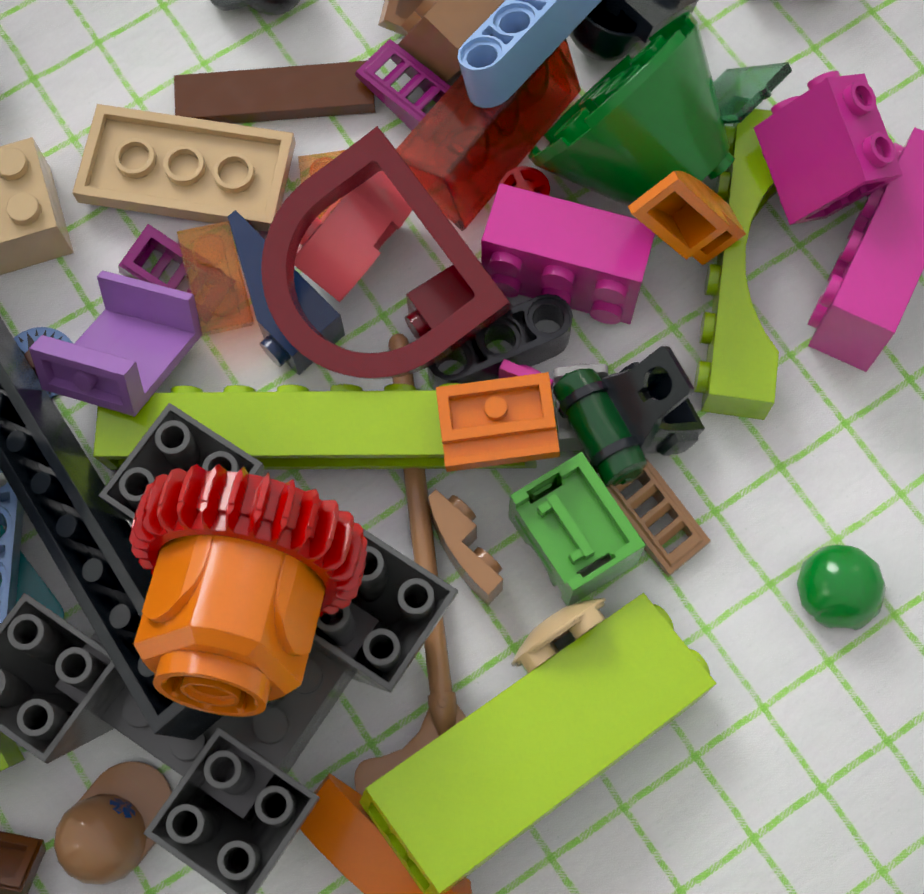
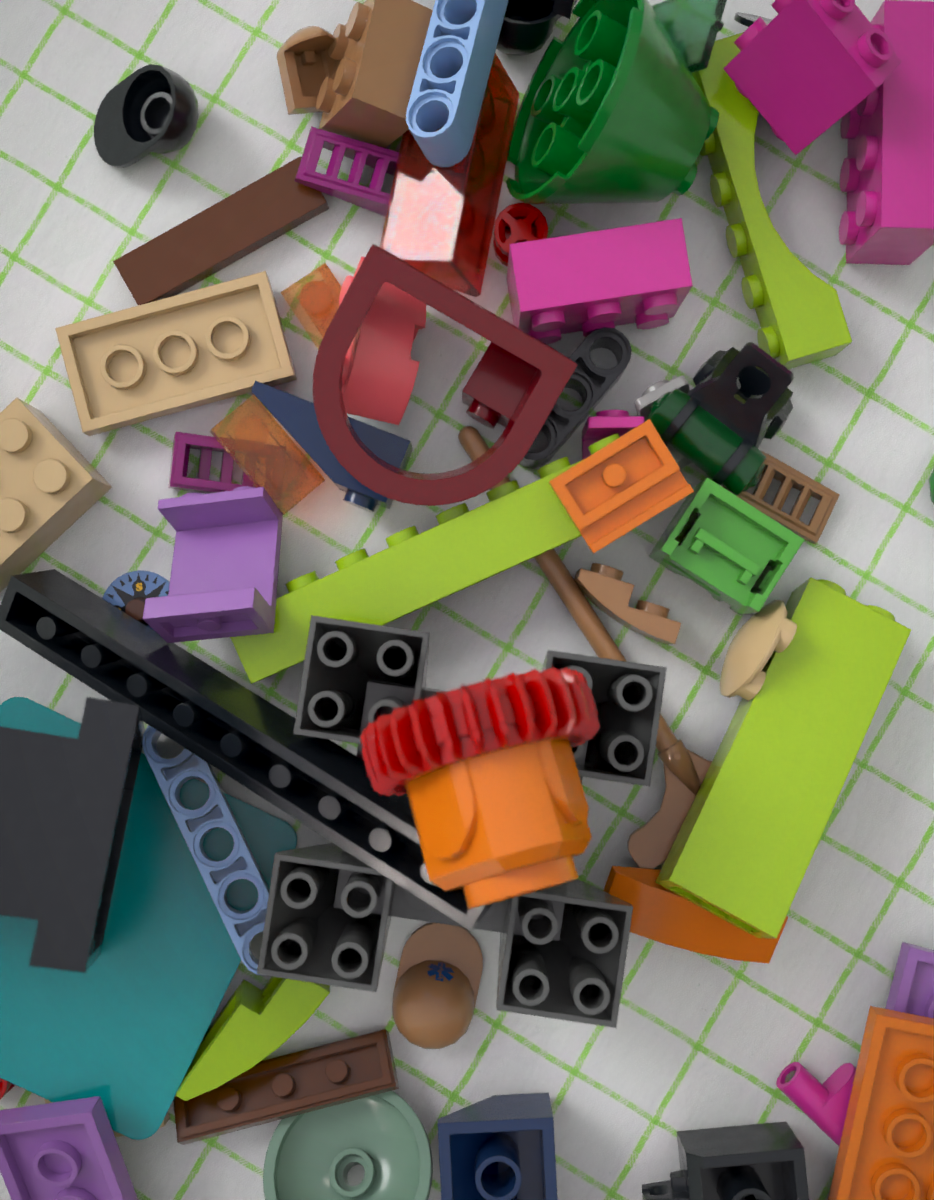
camera: 25 degrees left, 15 degrees up
(688, 217) = (709, 198): orange slope -> none

